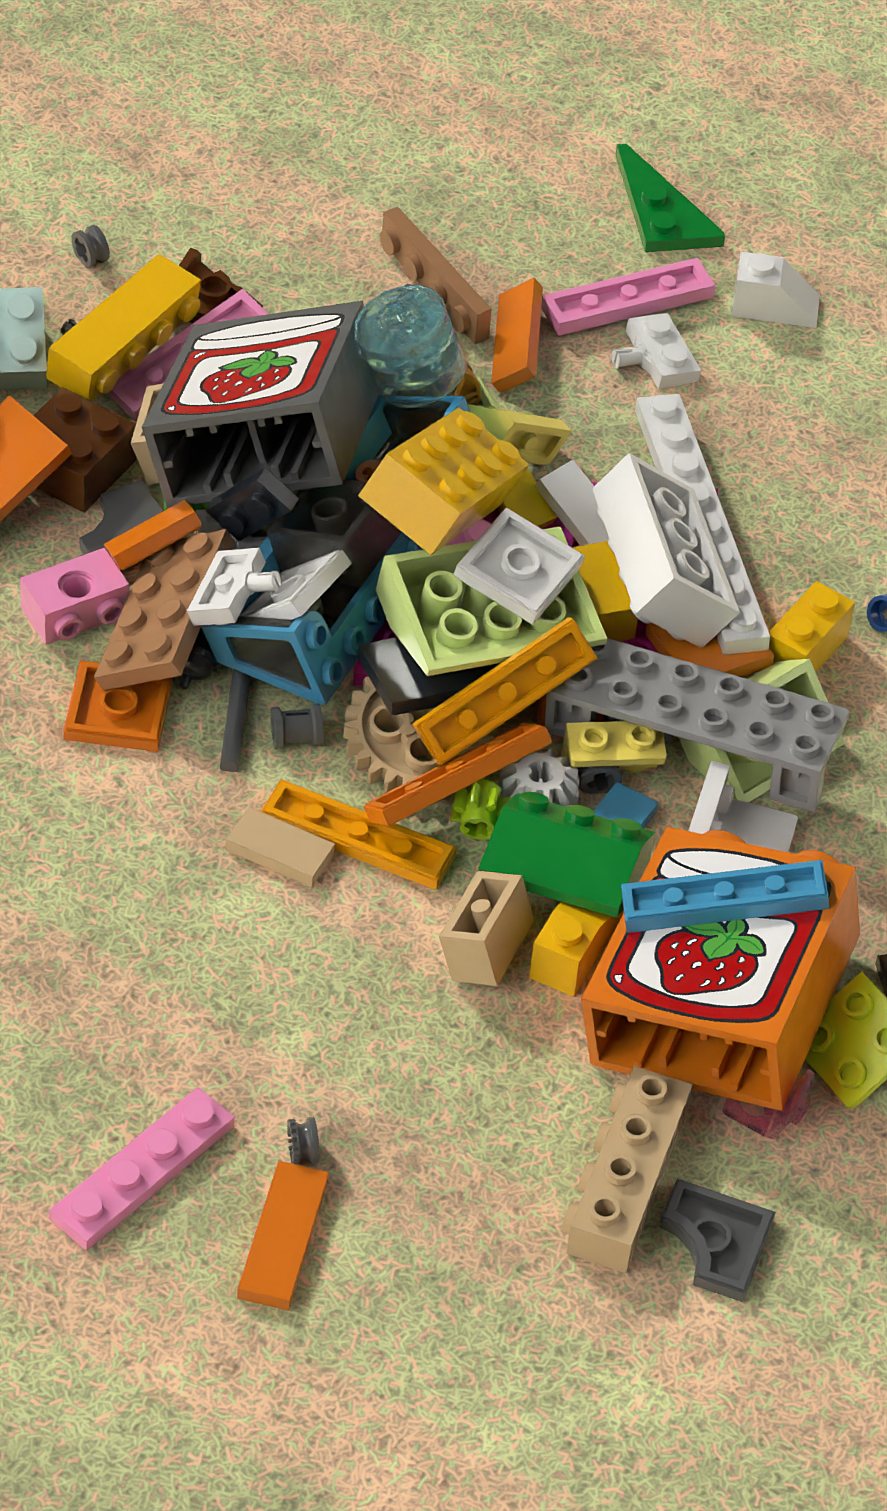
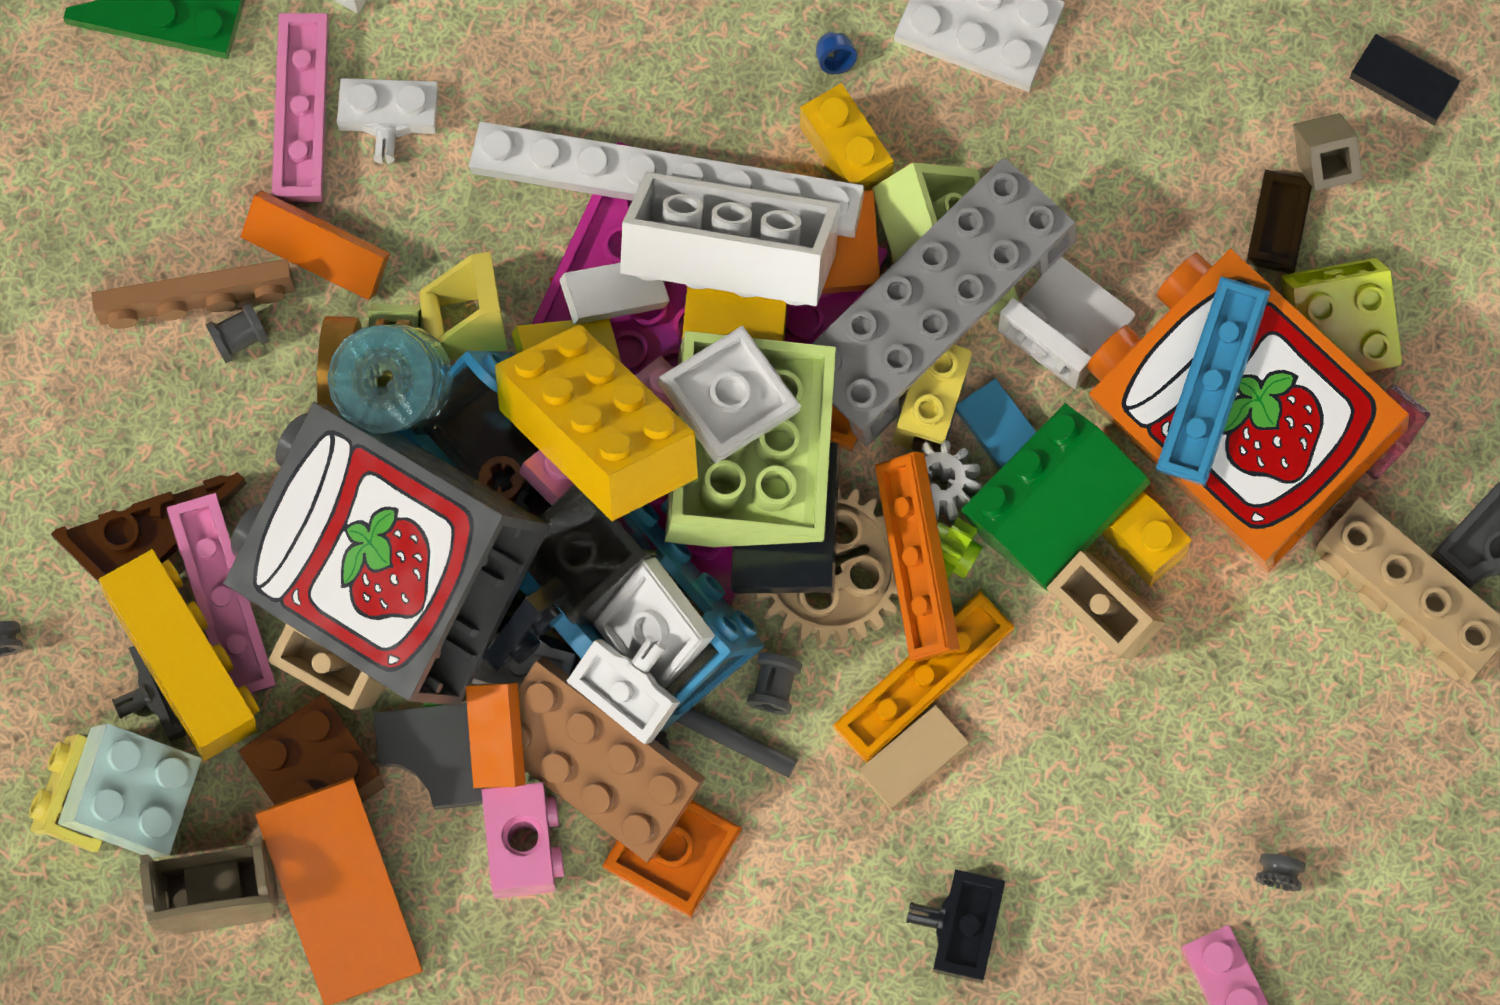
camera: 60 degrees left, 25 degrees up
(142, 919) = (963, 925): none -> black plate
(283, 1235) = (1370, 929): orange tile -> none
(504, 691) = (857, 472): light orange tile -> none

